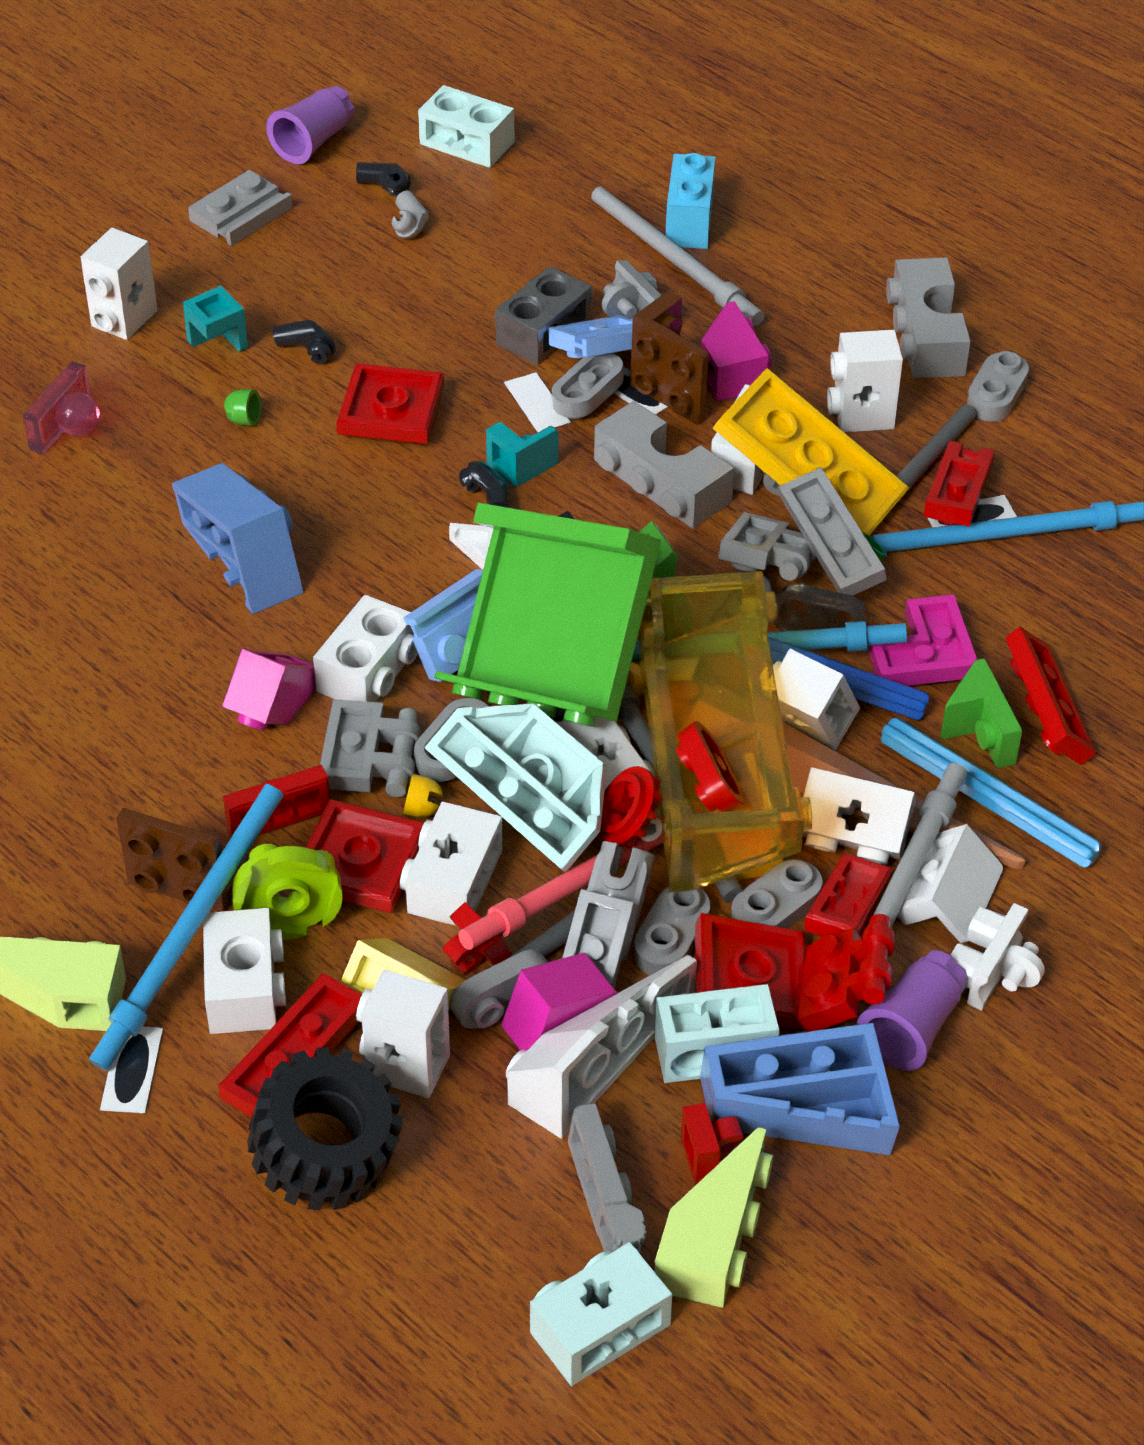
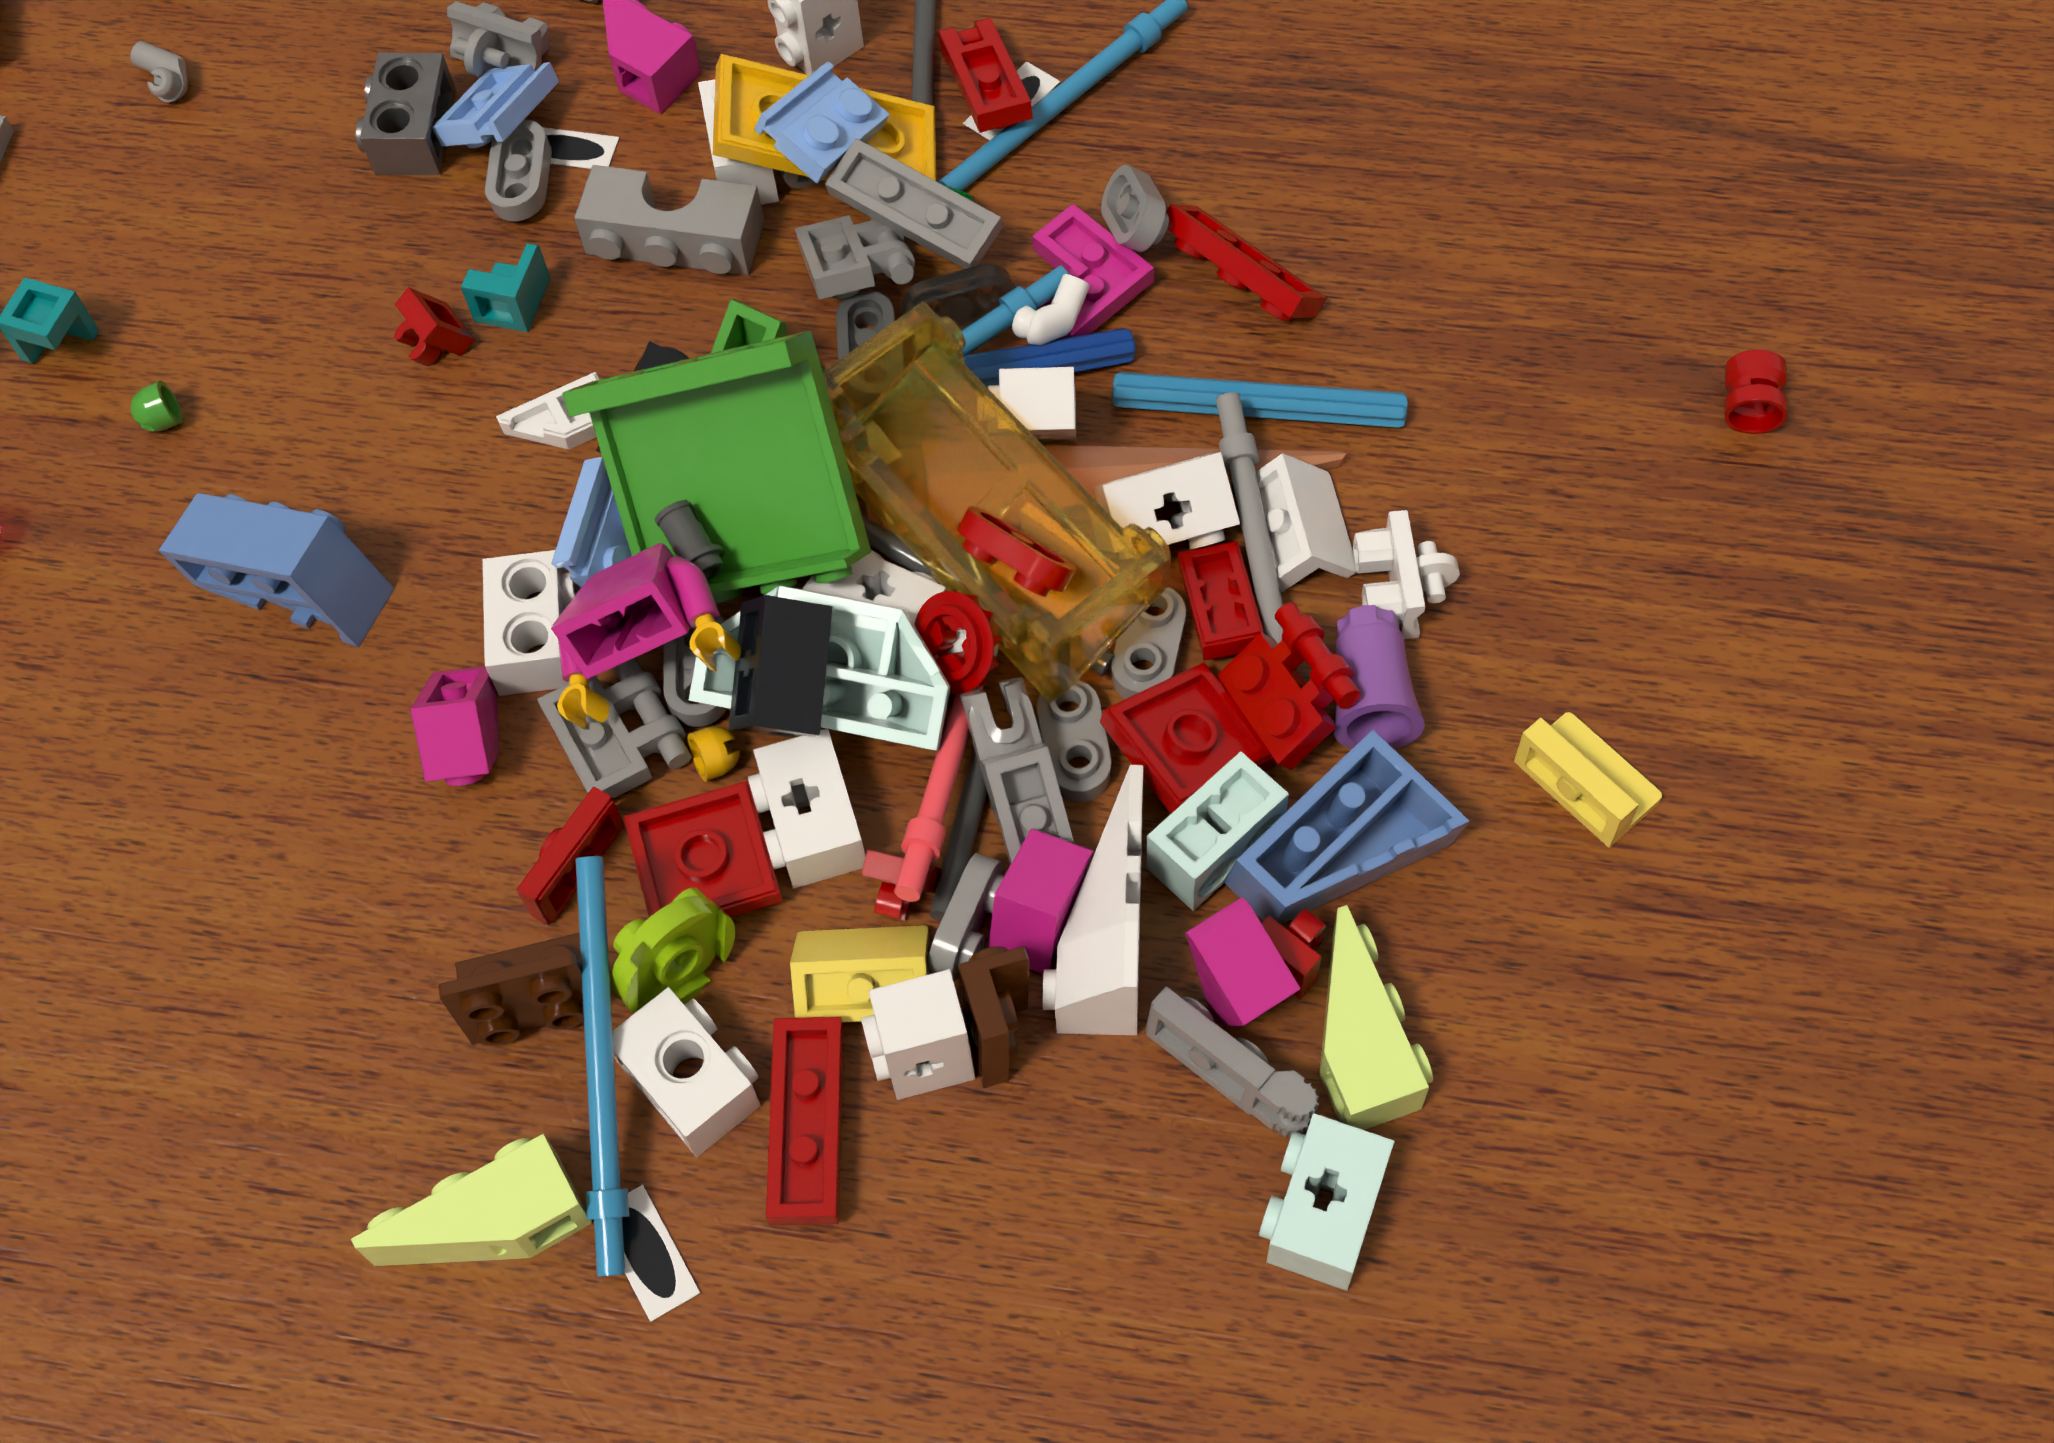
camera: 30 degrees left, 15 degrees up
(310, 335) = (166, 278): black arm -> none
(338, 1089) = (954, 1152): black tyre -> none
(387, 175) = (95, 34): black arm -> none
(390, 403) = (320, 311): red plate -> none
(419, 668) = (628, 614): none -> dark pink torso
(451, 446) = (433, 325): none -> red tile
(466, 1041) = (991, 992): none -> reddish brown bracket
(482, 476) = (510, 345): black arm -> none
(493, 752) = (780, 667): none -> black hinge
(500, 659) = (689, 537): none -> dark grey pin
(535, 401) = (472, 219): white sticker -> none
(653, 1115) = (1238, 965): none -> dark pink slope
(667, 363) = (594, 102): reddish brown bracket -> none
(806, 442) = (821, 121): none -> light blue plate
(872, 655) = (1054, 319): none -> white arm
(982, 709) = (1197, 313): bright green slope -> none
(994, 620) = (1134, 209): none -> light grey plate
(1029, 1167) = (1586, 776): none -> light yellow panel

